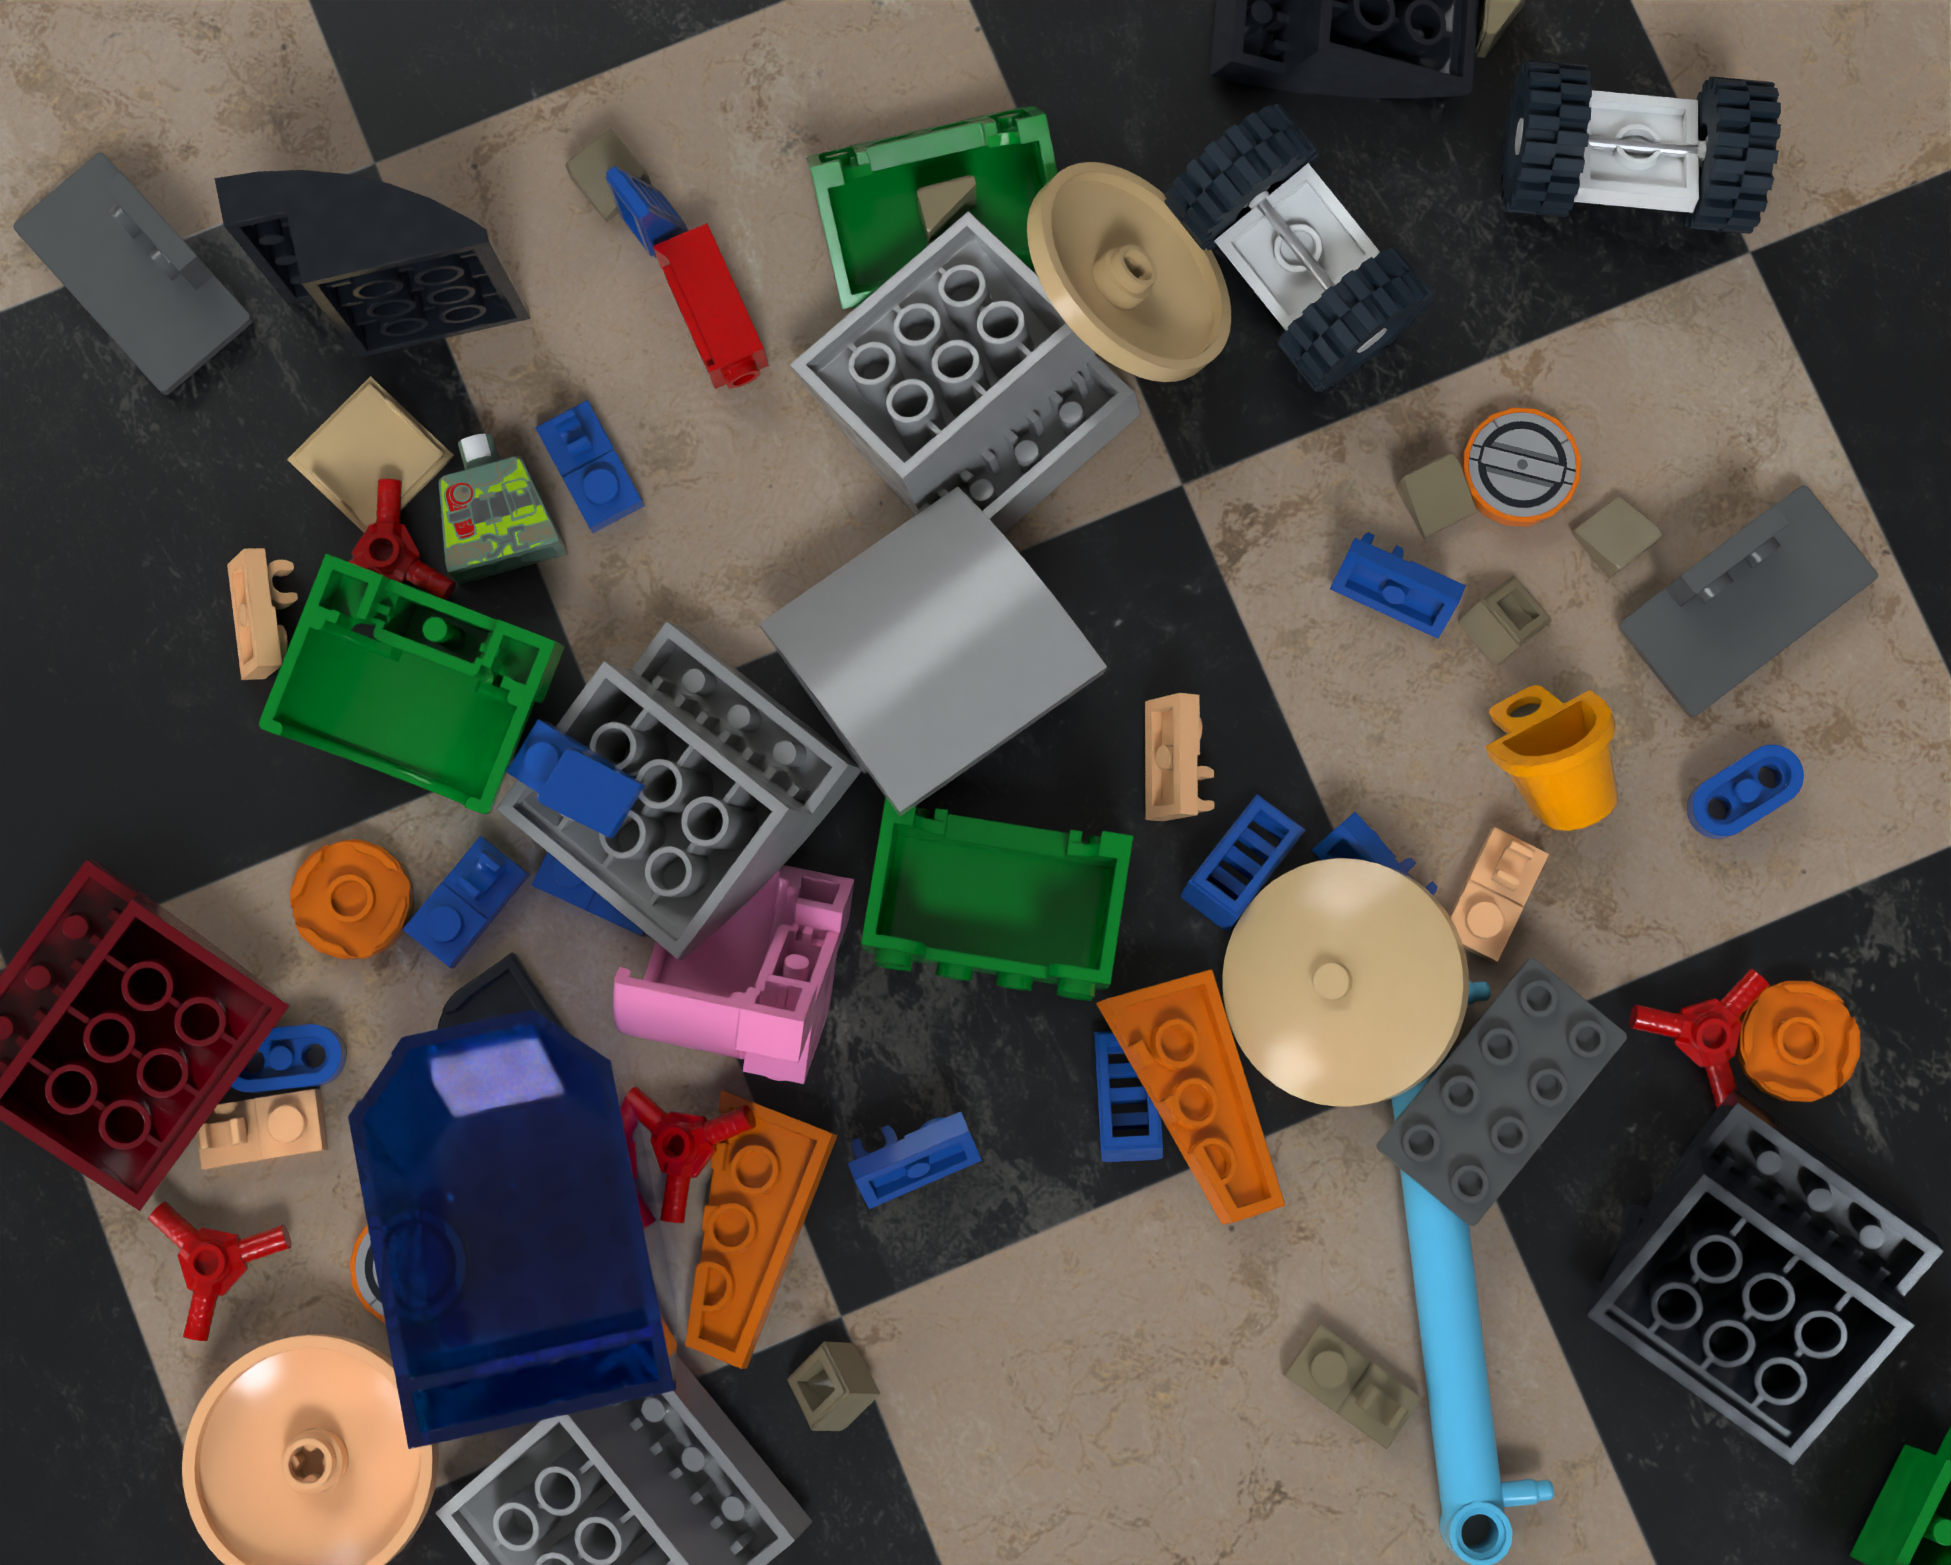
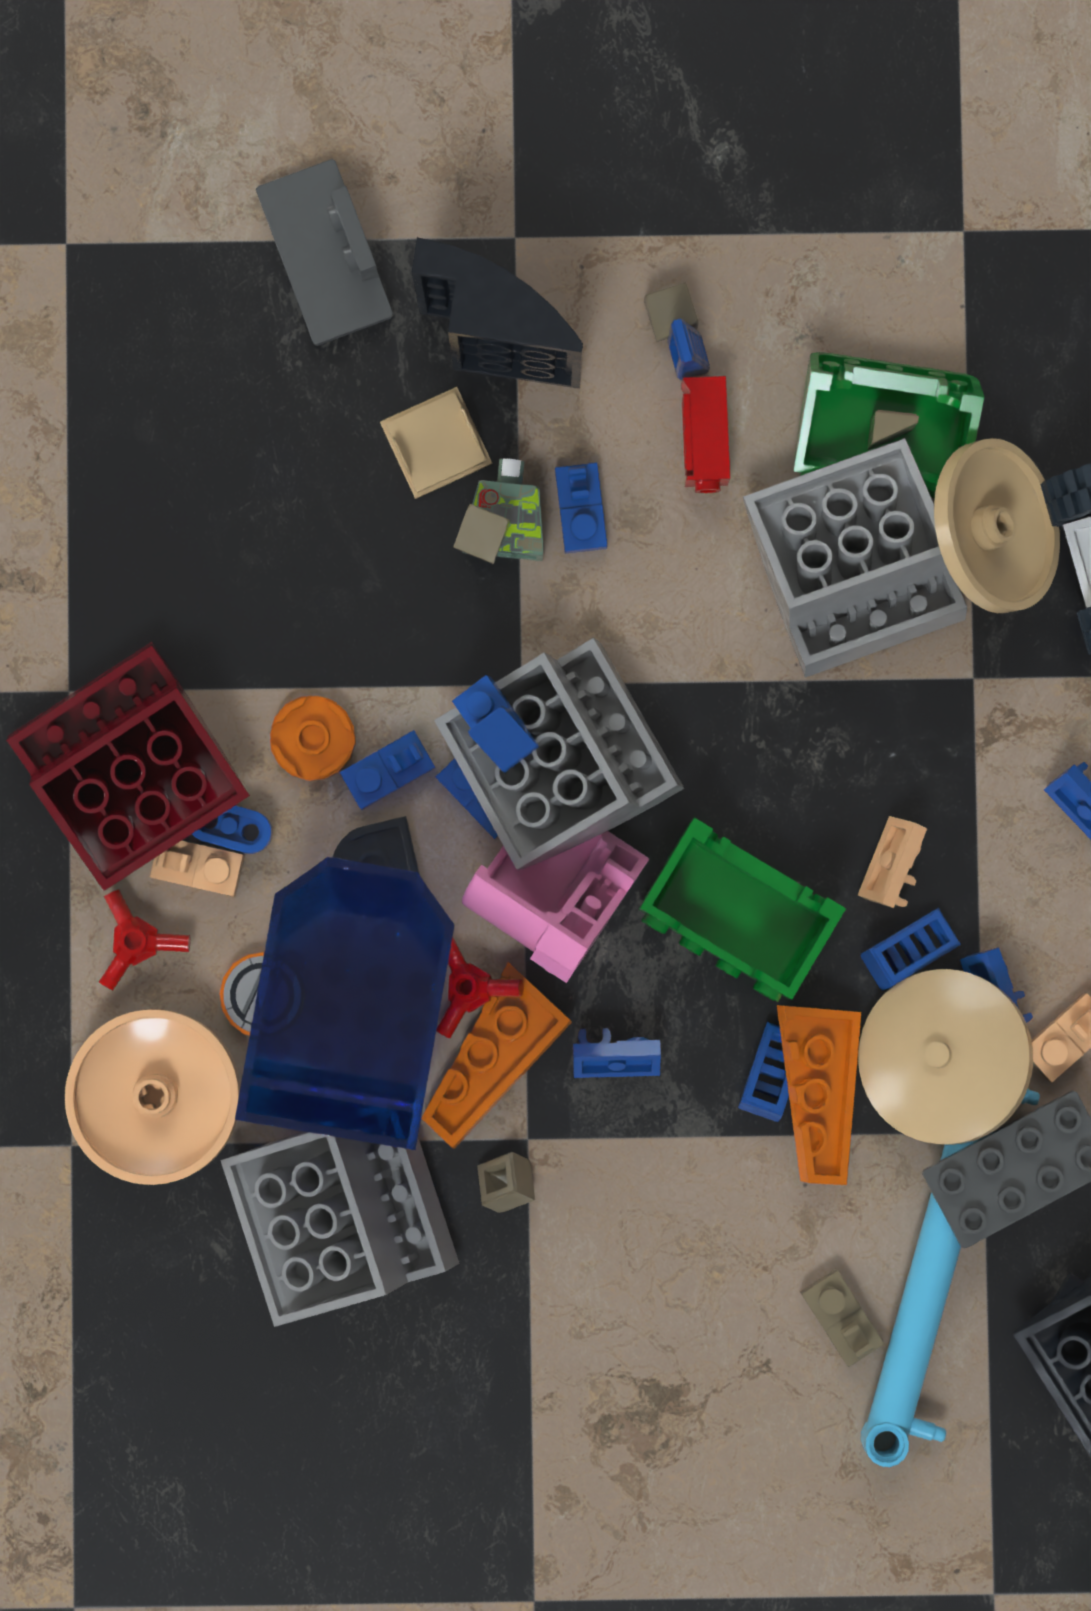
camera: 20 degrees right, 5 degrees up
(254, 601) = (323, 511): light nougat plate -> none
(390, 549) = (423, 515): red piece -> none
(422, 697) = (413, 621): green piece -> none
(466, 541) = (481, 533): none -> dark tan slope
(932, 649) = (763, 730): light grey slope -> none

